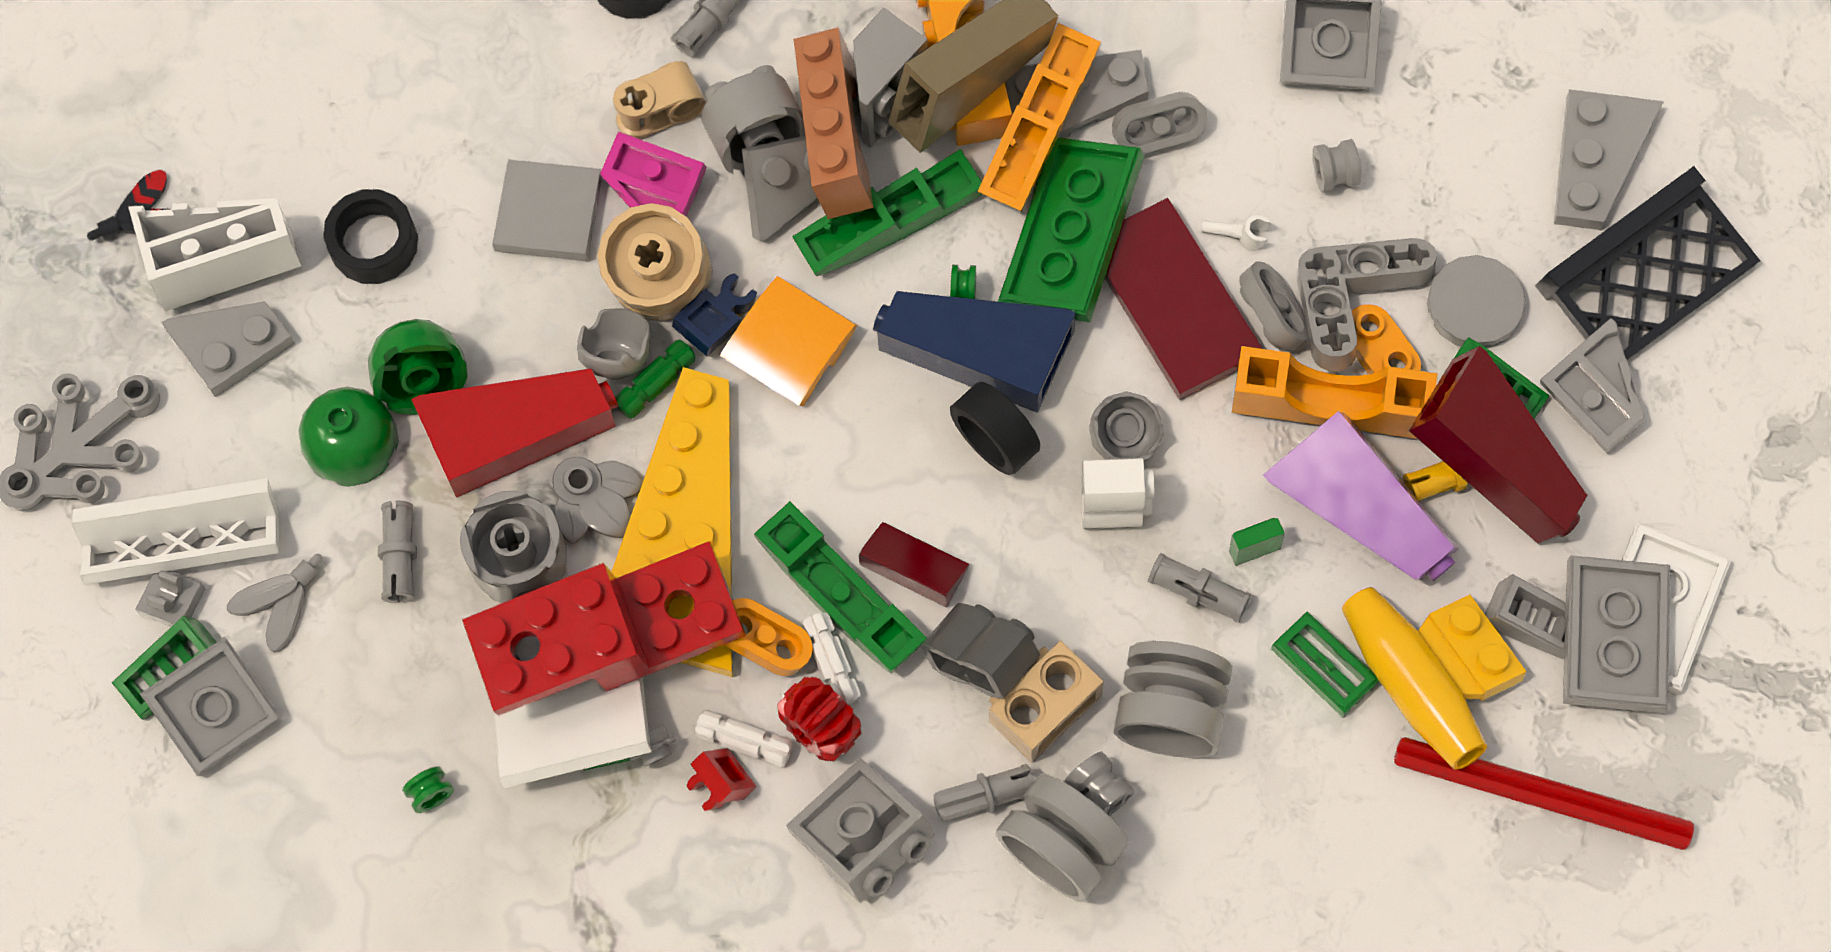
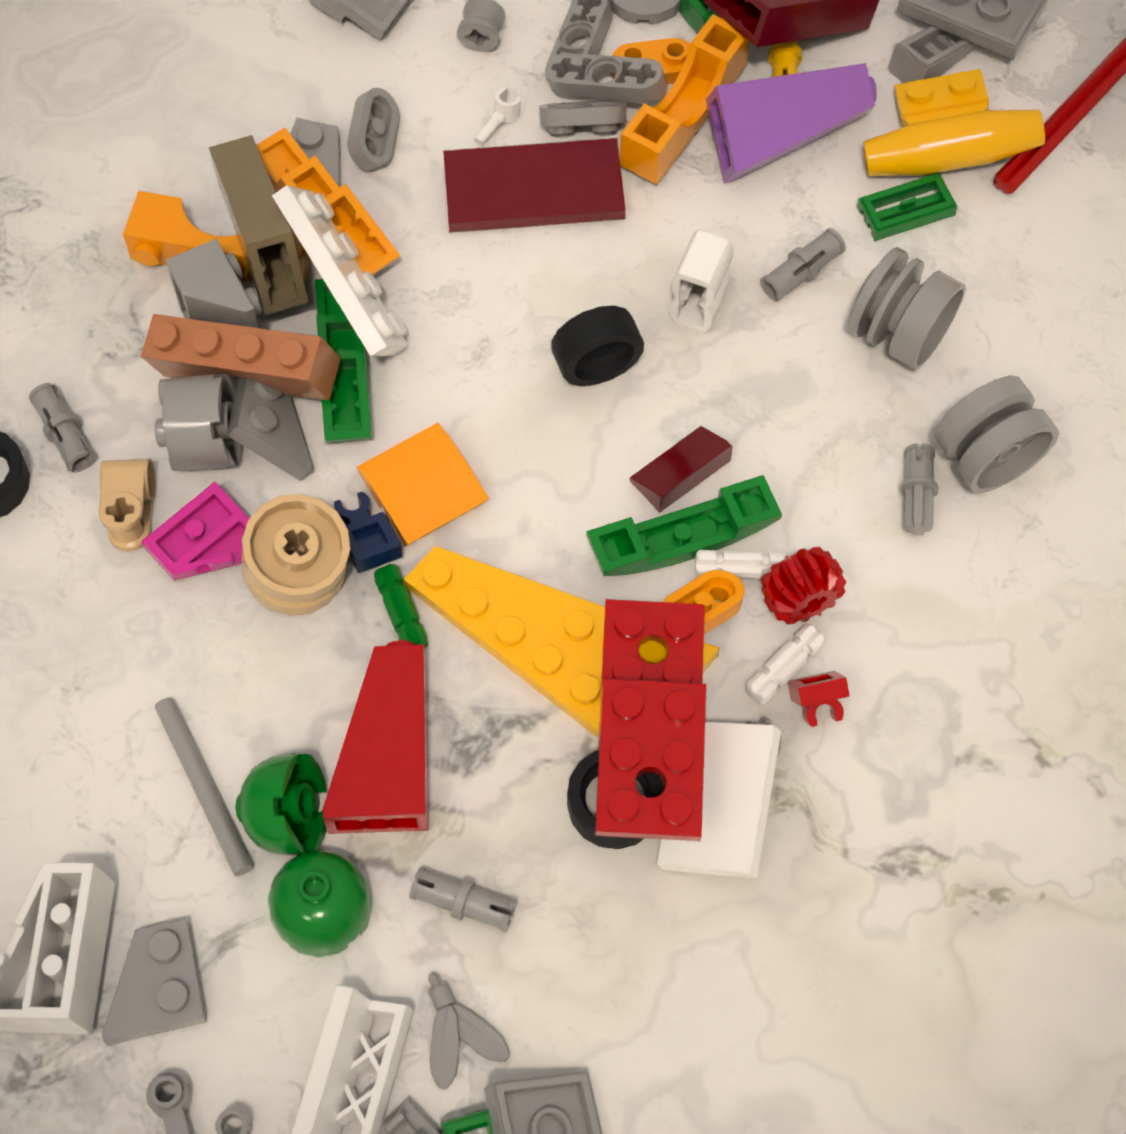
camera: 70 degrees left, 5 degrees down
(357, 206) = (97, 777): black tyre -> none
(422, 289) = (203, 787): none -> light grey bar
(428, 789) = (721, 955): green bush -> none
(508, 520) = (491, 774): light grey brick -> none
(547, 210) = (179, 639): light grey tile -> none
(599, 502) = (500, 704): light grey plate -> none
(615, 343) = (354, 622): light grey hair -> none
(862, 831) = (917, 594): light grey plate -> none
(950, 162) = (335, 261): none -> white plate
(963, 282) = (443, 328): green bush -> none
(979, 341) = (502, 335): dark blue slope -> none
(981, 649) = (796, 434): dark grey brick -> none
(1054, 707) = (866, 408): tan brick -> none
(1072, 226) = (440, 229): green tile -> none
(1098, 784) = (940, 397): light grey wheel -> none
(1126, 427) = (641, 257): light grey hair -> none
(1256, 541) = (784, 206): green tile -> none

